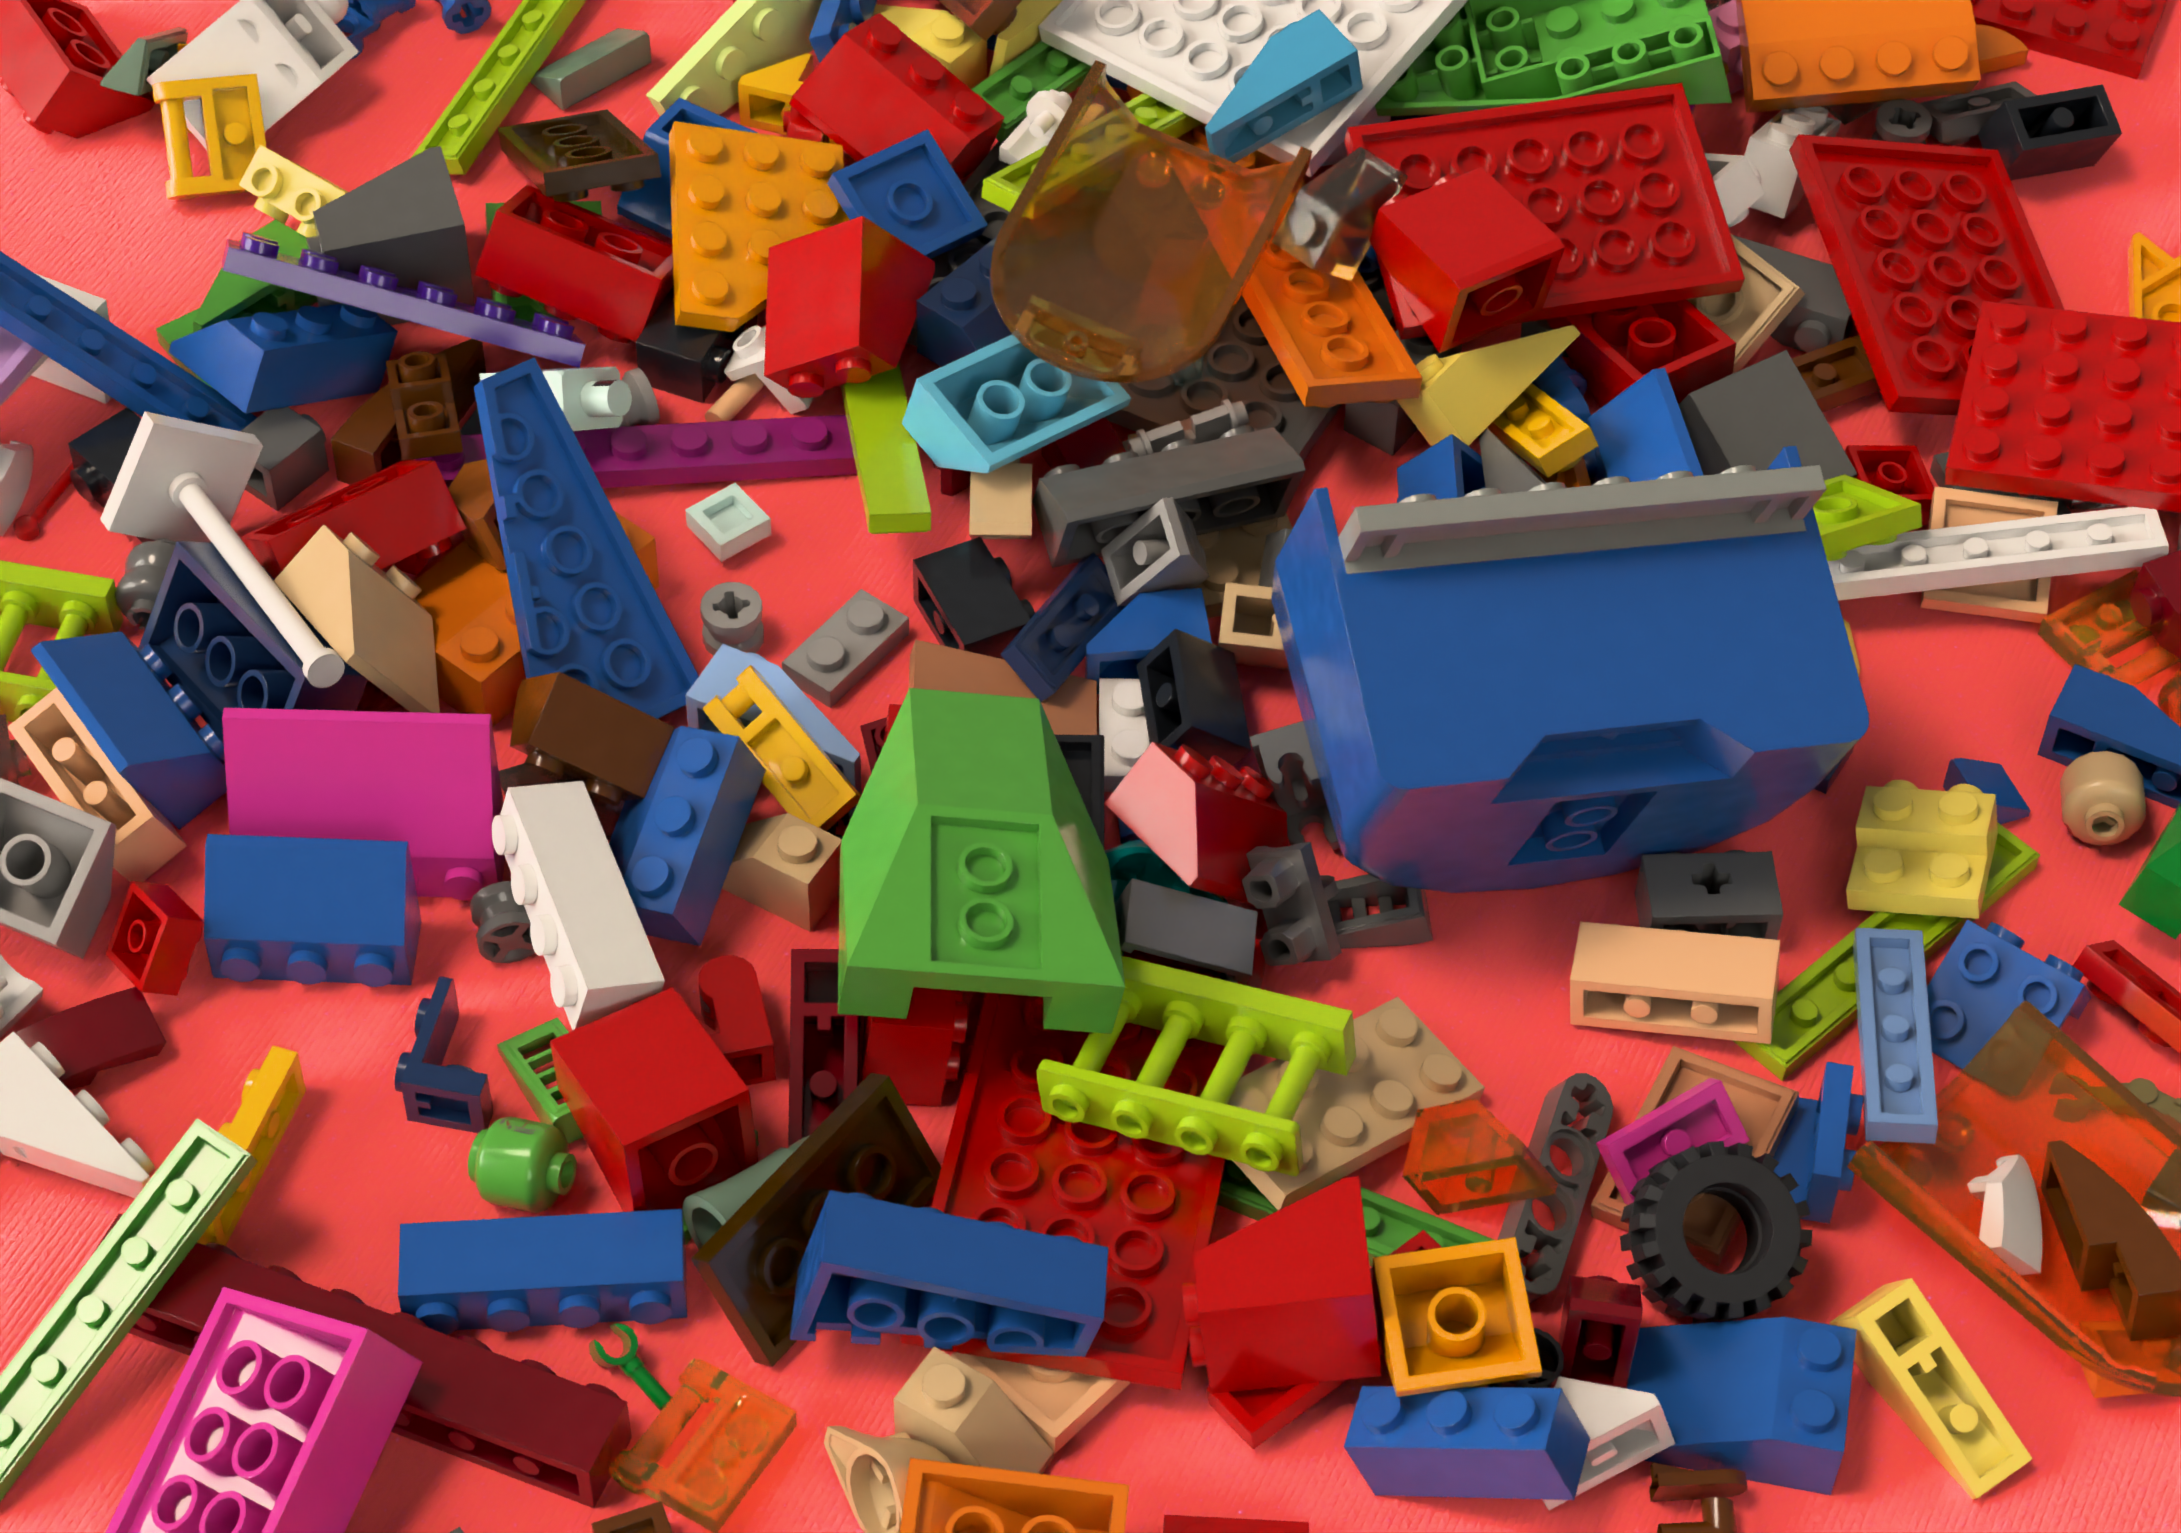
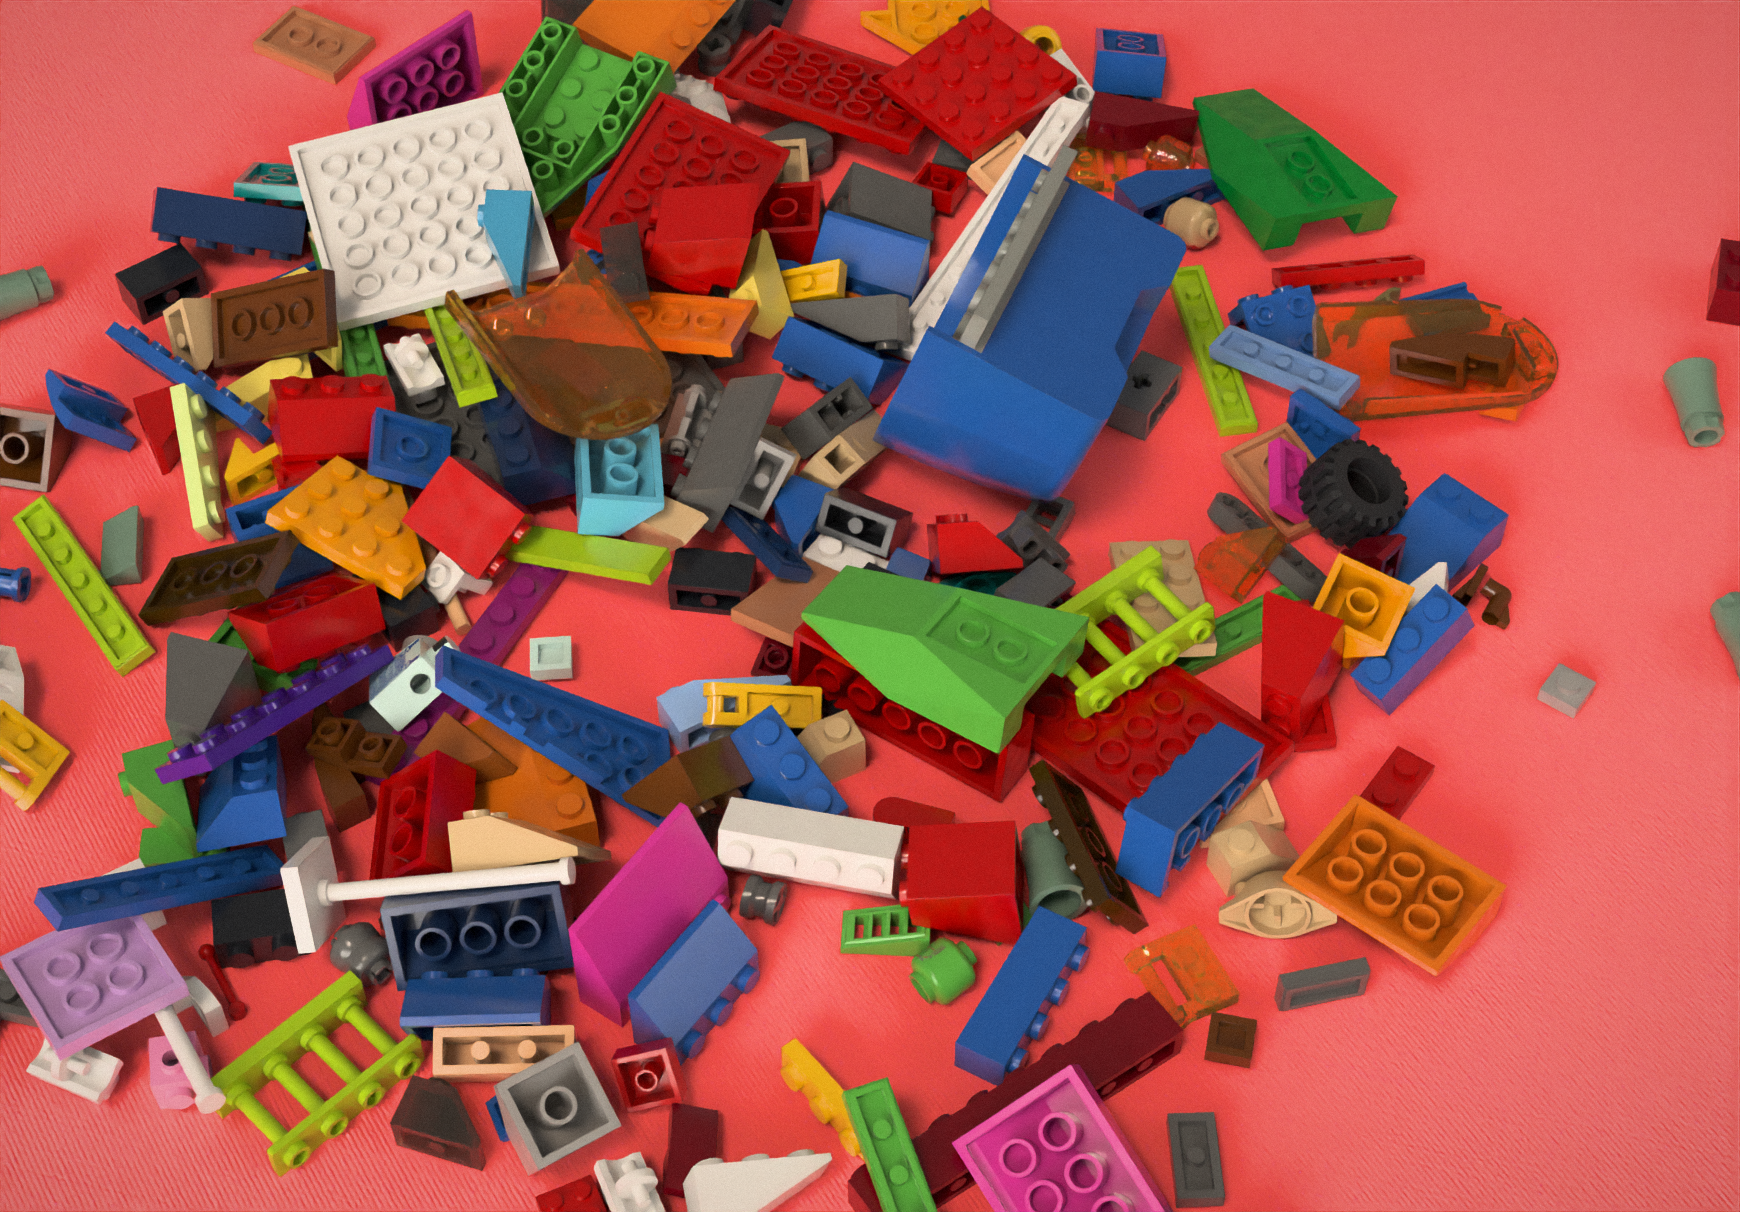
camera: 55 degrees left, 0 degrees up
(287, 189) = (111, 730): light yellow plate -> none
(436, 1093) = (854, 996): dark blue bracket -> none
(630, 1364) = (1098, 986): green hand -> none
(718, 612) = (634, 697): light grey wheel -> none
(822, 1042) = (948, 781): dark red slope -> none
(846, 648) = (683, 650): light grey plate -> none
(1290, 768) = (963, 493): dark grey hinge -> none
(1675, 982) = (1186, 431): light nougat brick -> none
(1838, 373) = (842, 159): reddish brown plate -> none
(1861, 515) = (962, 209): lime plate -> none
(1923, 850) = (1188, 305): light yellow plate -> none
(1932, 1386) = (1476, 466): light yellow slope -> none
(2011, 1214) = (1396, 379): white slope -> none

